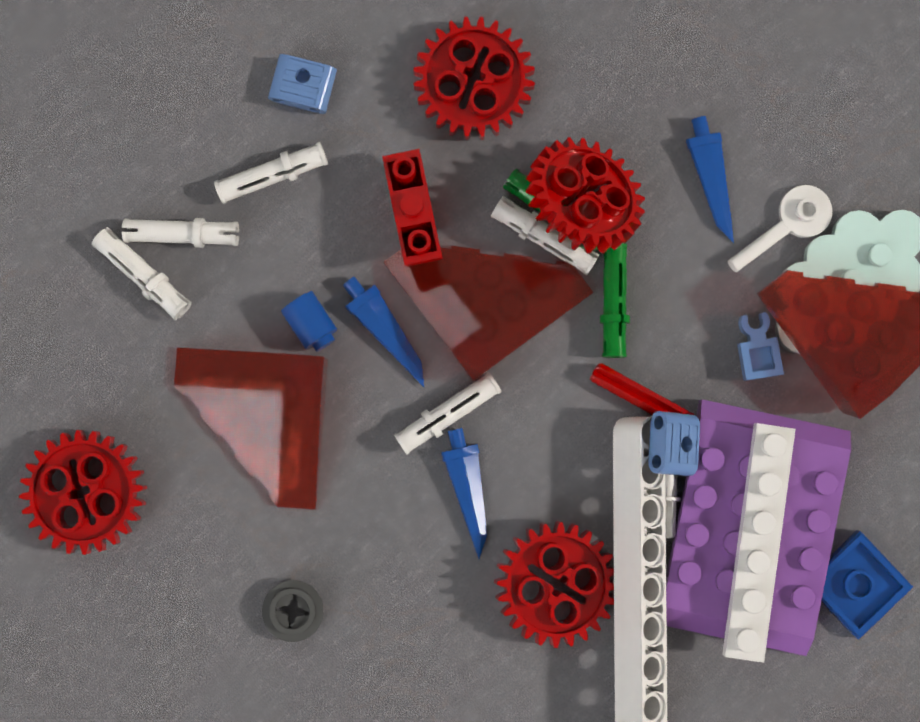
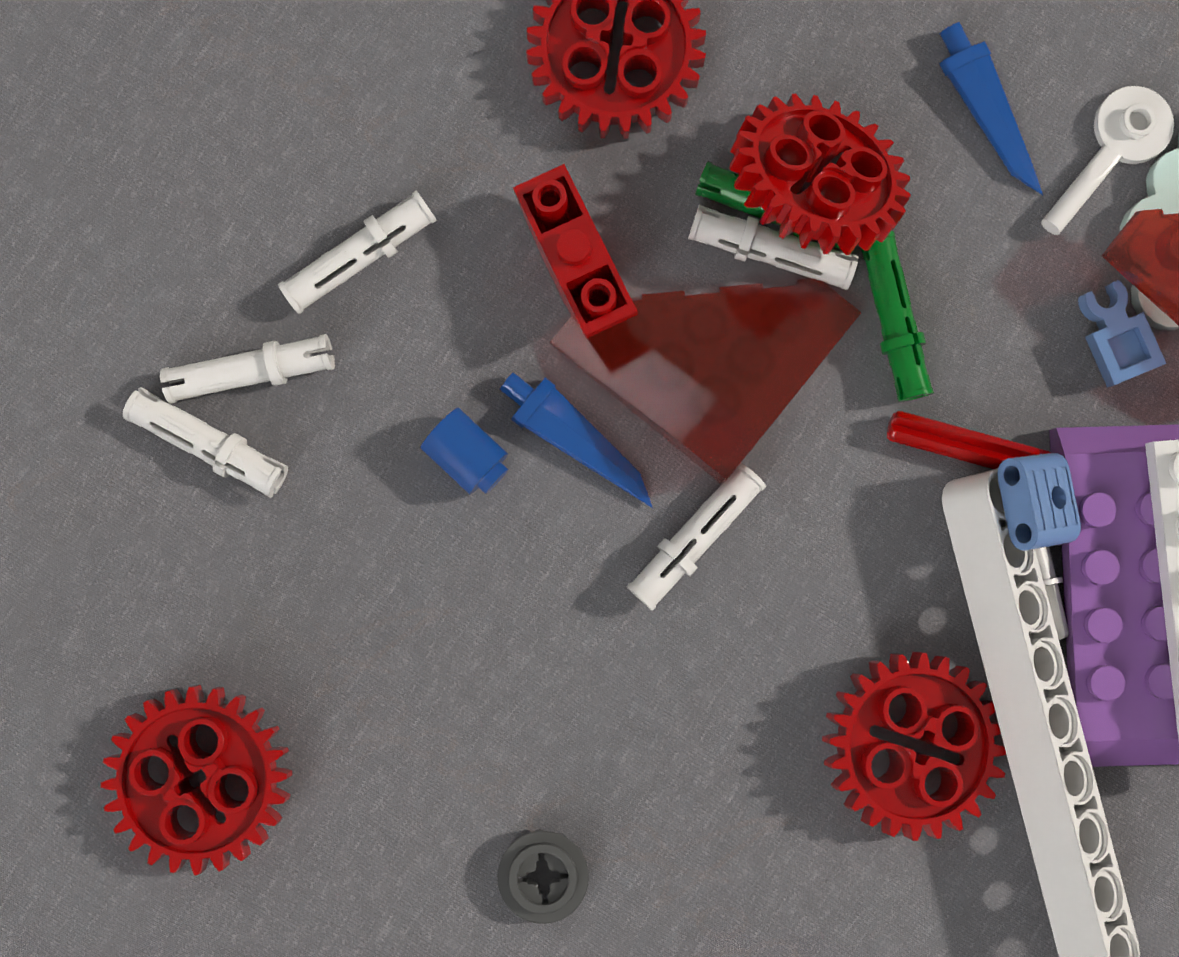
camera: 10 degrees left, 0 degrees up
(266, 412) = (432, 596): clear red slope -> none
(302, 83) = (371, 114): medium blue piece -> none
(465, 475) = (744, 622): blue bar -> none

